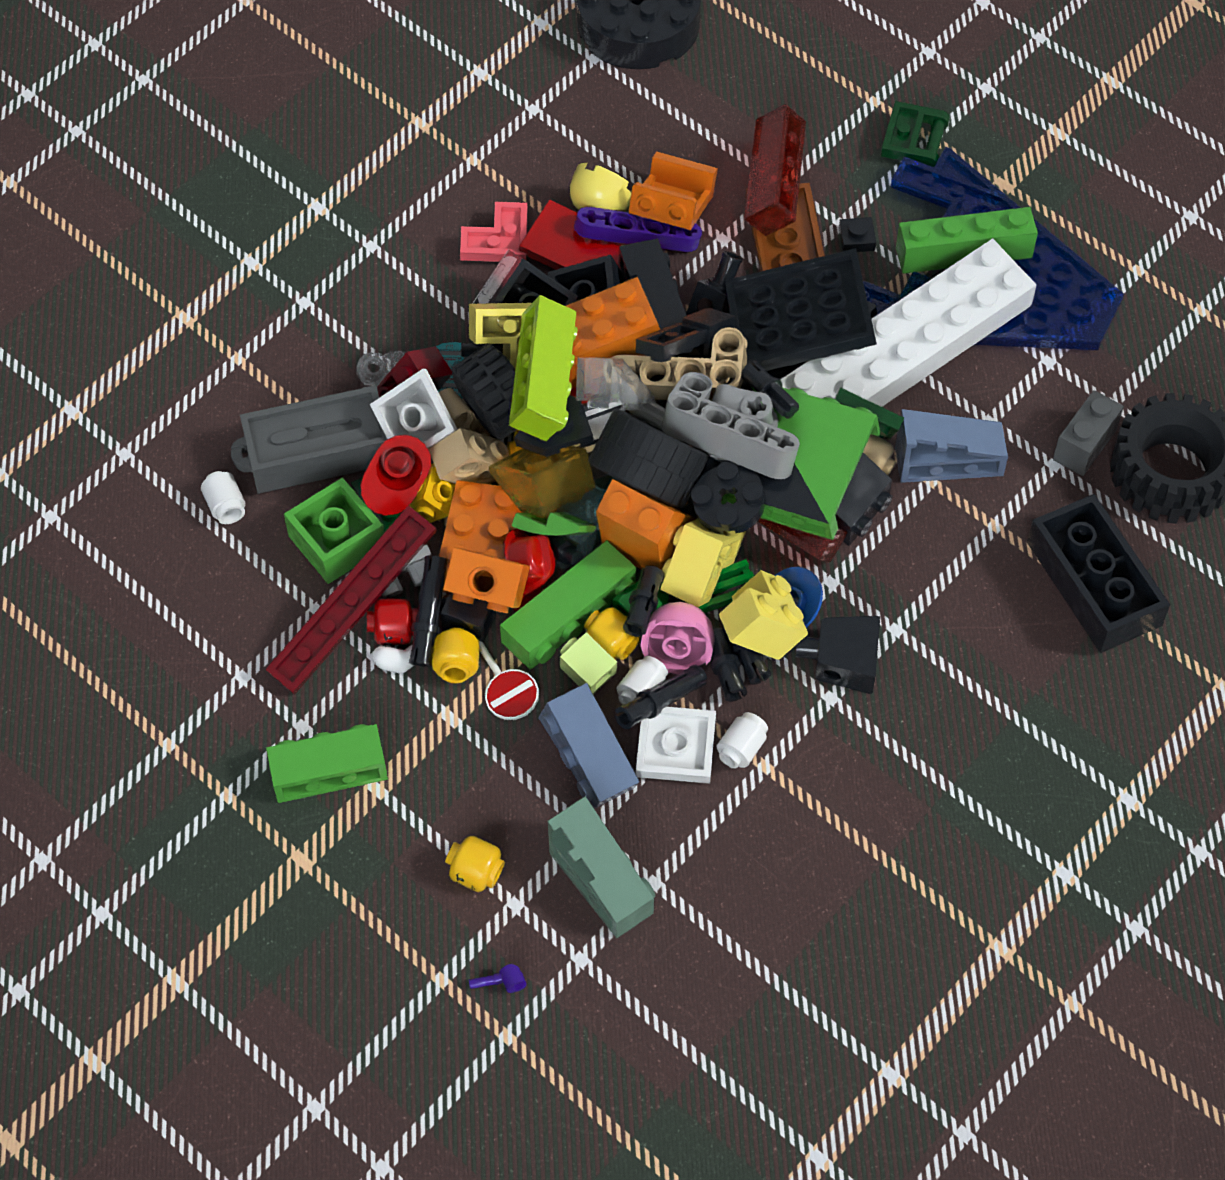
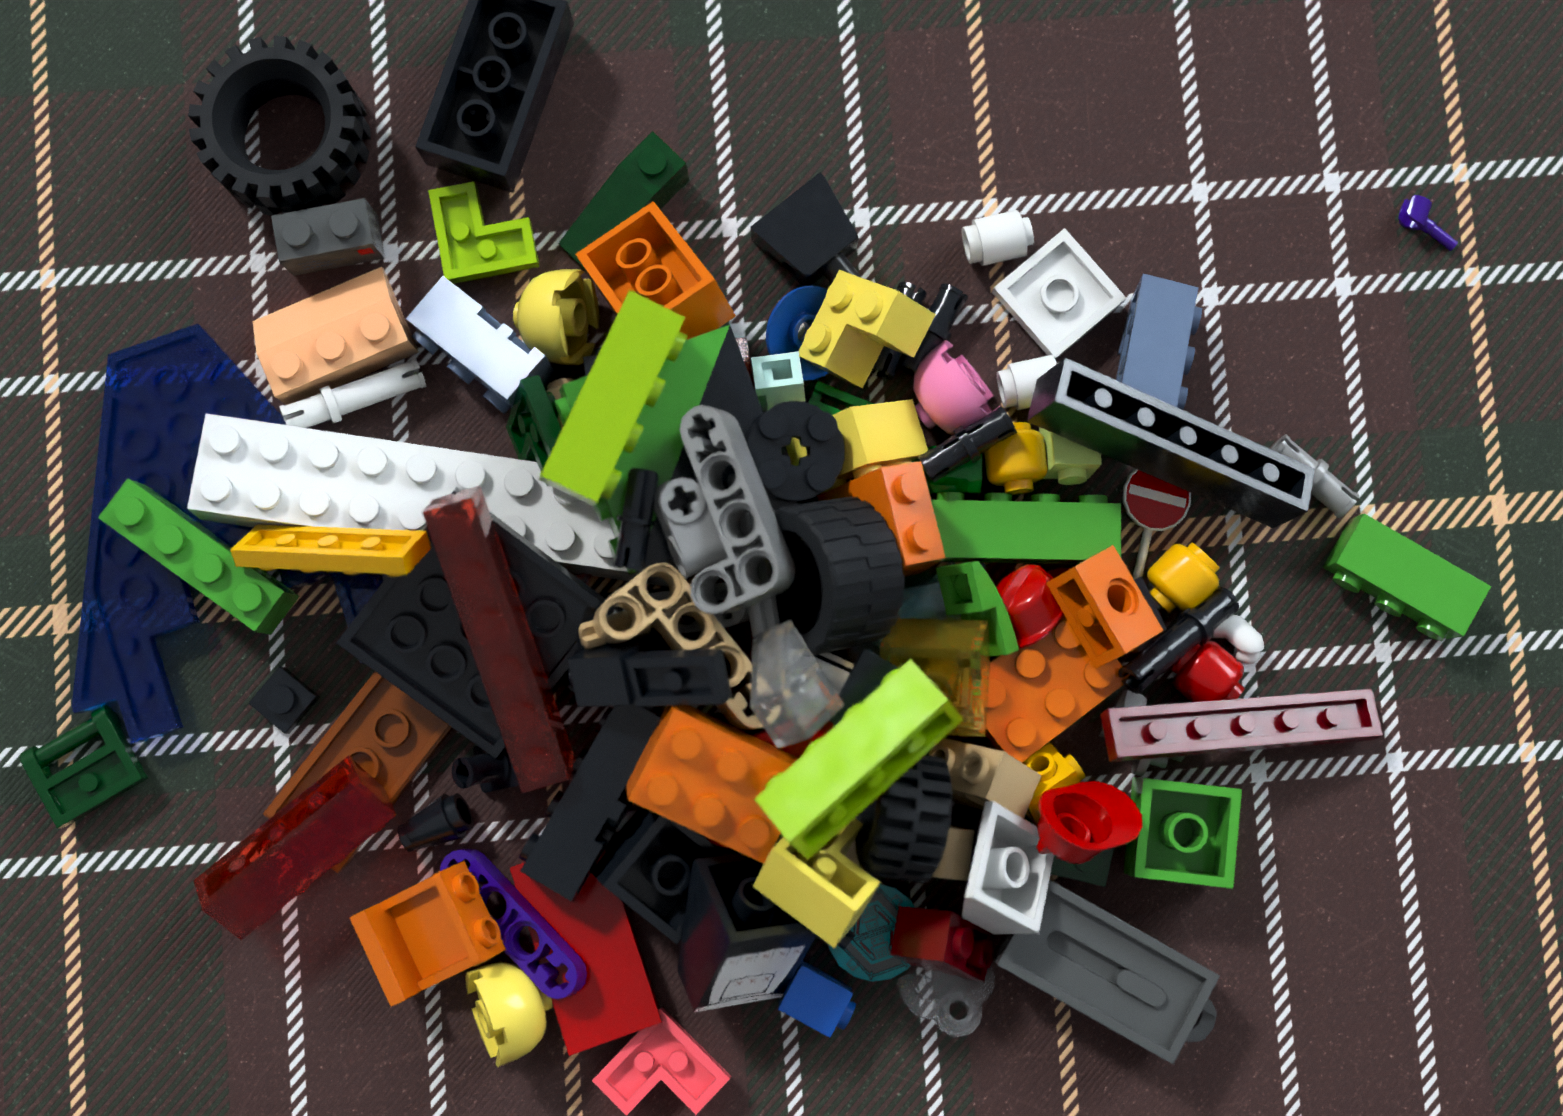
camera: 135 degrees left, 25 degrees up
(223, 497) = (1252, 991): white brick -> none
(432, 773) = (1325, 485): none -> light grey pin
(449, 317) = (817, 1000): none -> blue brick
(475, 863) = (1356, 346): yellow head -> none
(529, 691) = (1170, 444): none -> black brick
(599, 868) = (1253, 229): sand green wedge -> none
(652, 701) = (1091, 339): black pin -> none
(721, 240) = (437, 823): none -> black cone
(773, 553) = (778, 379): none -> light aqua brick
(781, 301) = (500, 638): none -> clear red brick
(843, 418) = (612, 399): none -> lime brick
(894, 536) = (658, 264): none -> orange brick
(902, 271) = (331, 549): none -> yellow plate
(926, 493) = (557, 315): none -> light yellow cylinder
(961, 587) = (644, 176): none -> dark green slope
(990, 362) = (335, 402): none -> white pin
(1013, 494) = (474, 249): none -> lime plate
(1032, 393) = (332, 337): none -> light nougat slope

